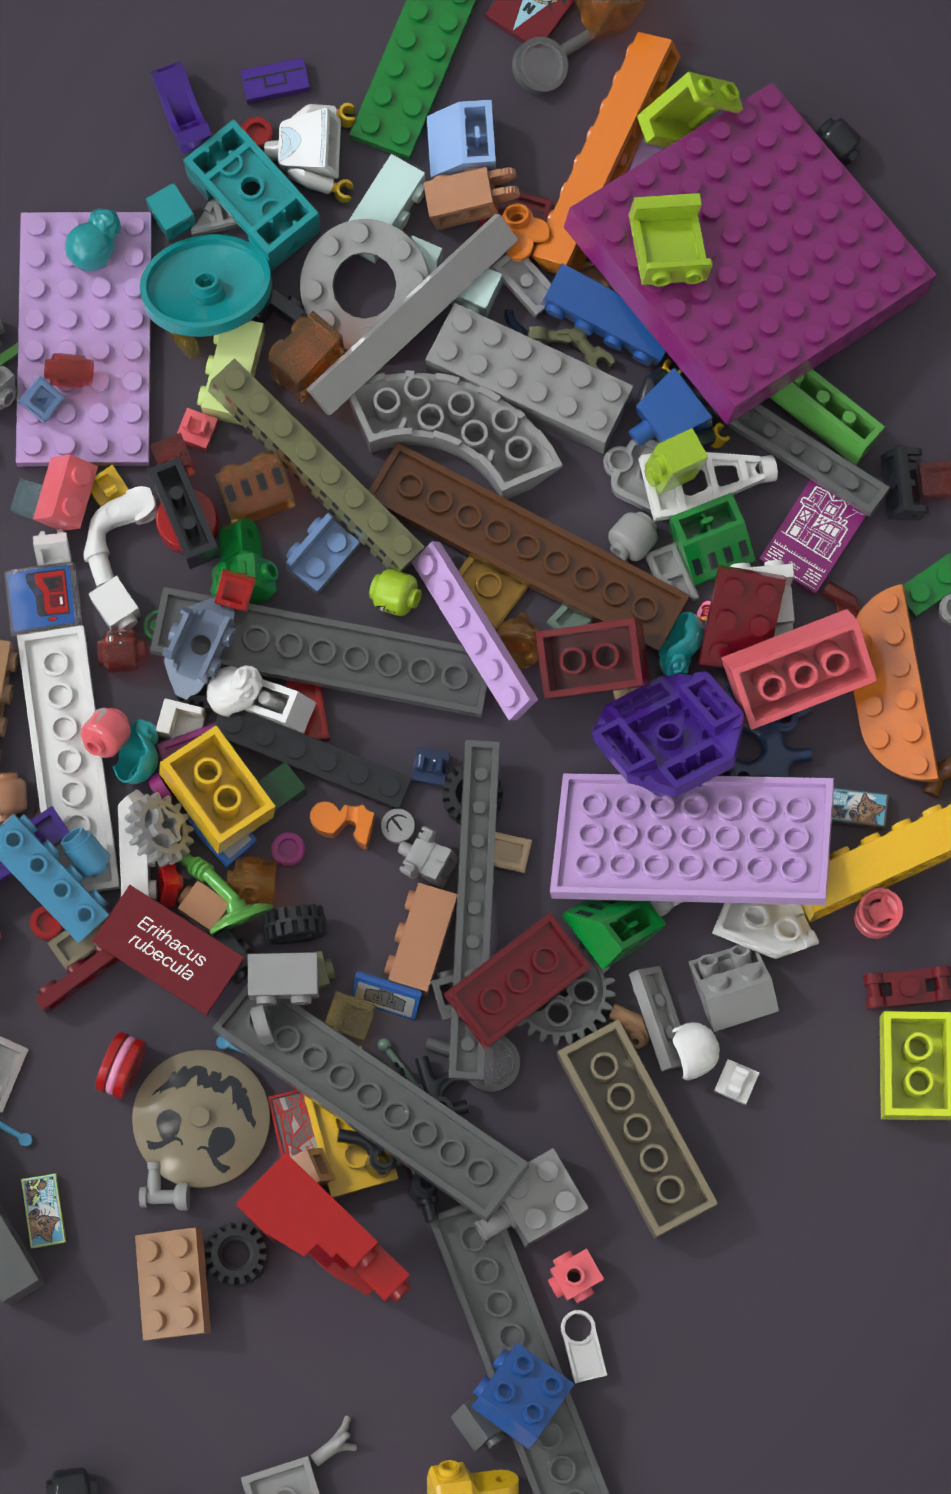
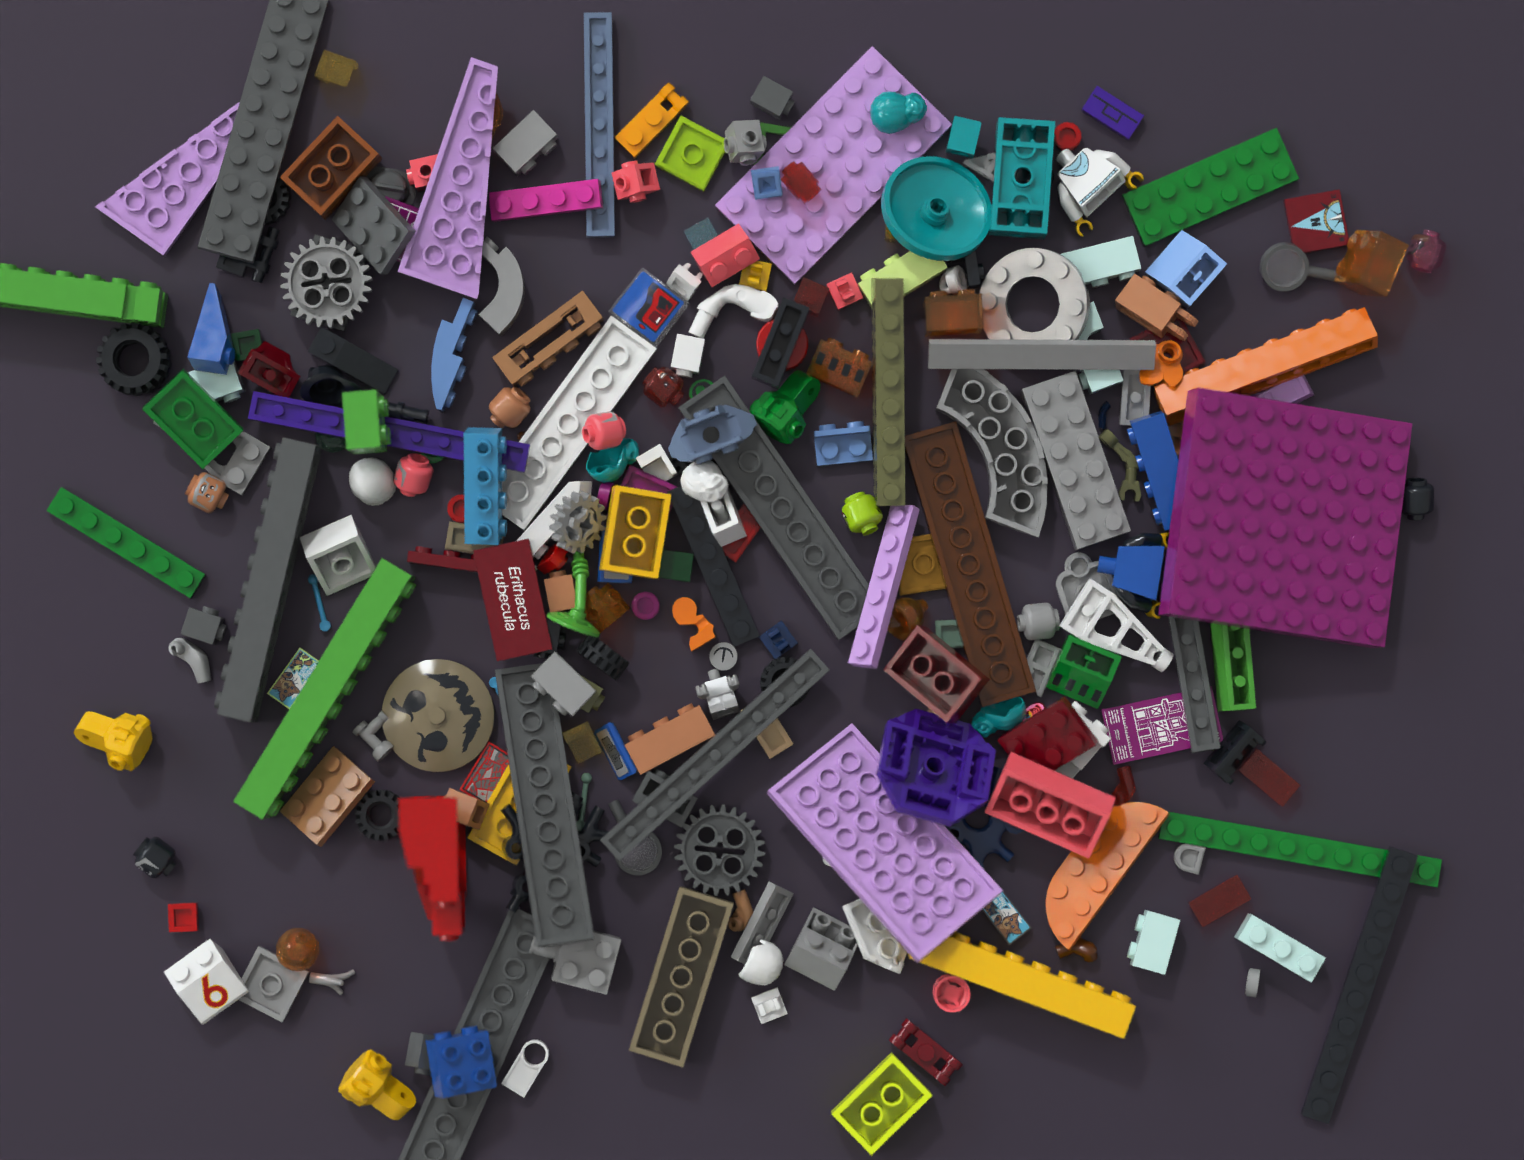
camera: 45 degrees right, 10 degrees up
(79, 1191) = (324, 690): none -> bright green brick
(85, 852) = (521, 492): dark azure brick -> none
(120, 1065) = (420, 639): red head -> none
(180, 107) = (1034, 76): dark purple arch -> none
(234, 590) = (763, 422): red tile -> none
(262, 1024) = (524, 698): light grey tile -> none
(277, 328) = (955, 279): none -> white tile
(278, 1445) = (297, 949): none -> clear orange helmet
(517, 980) = (697, 823): dark red tile -> none
(584, 1266) = (571, 1019): coral brick -> none
(613, 927) = (784, 846): green slope -> none
(669, 239) = (1235, 470): lime panel -> none
(675, 461) = (1103, 607): lime brick -> none
(686, 107) = (1328, 386): lime panel -> none

